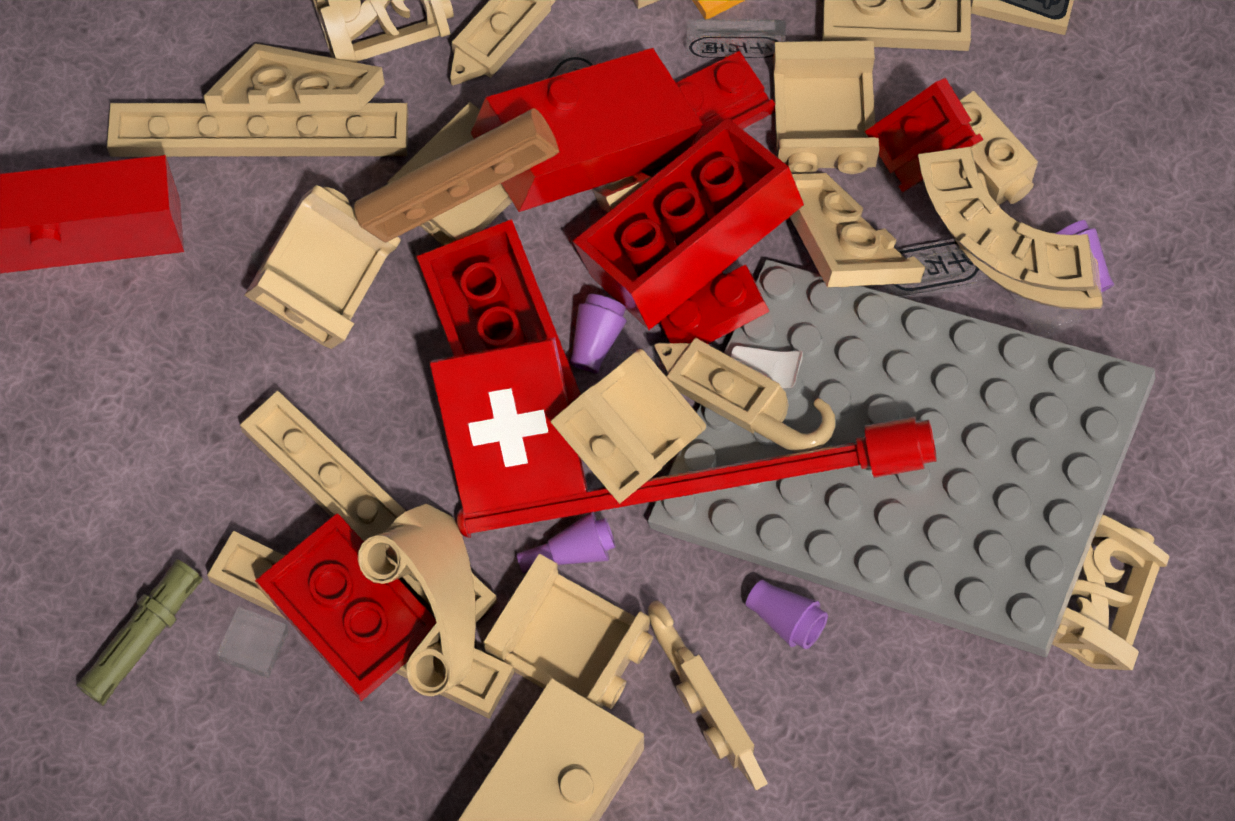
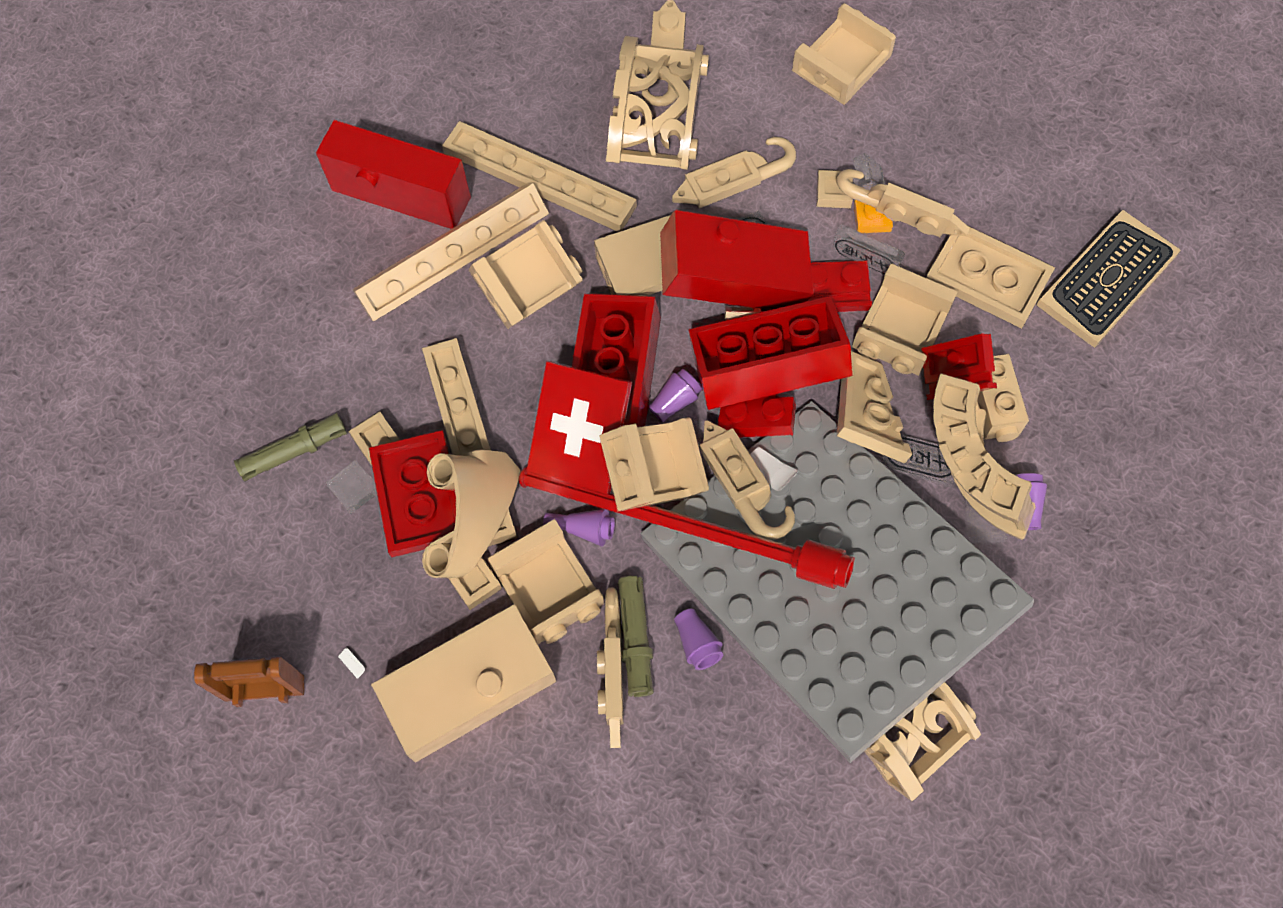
camera: 30 degrees right, 0 degrees up
(201, 283) = (450, 251): none -> tan plate
(293, 81) = (573, 155): tan wing -> none
(457, 176) = (630, 251): medium nougat brick -> none
(707, 641) = (636, 644): none -> olive pin

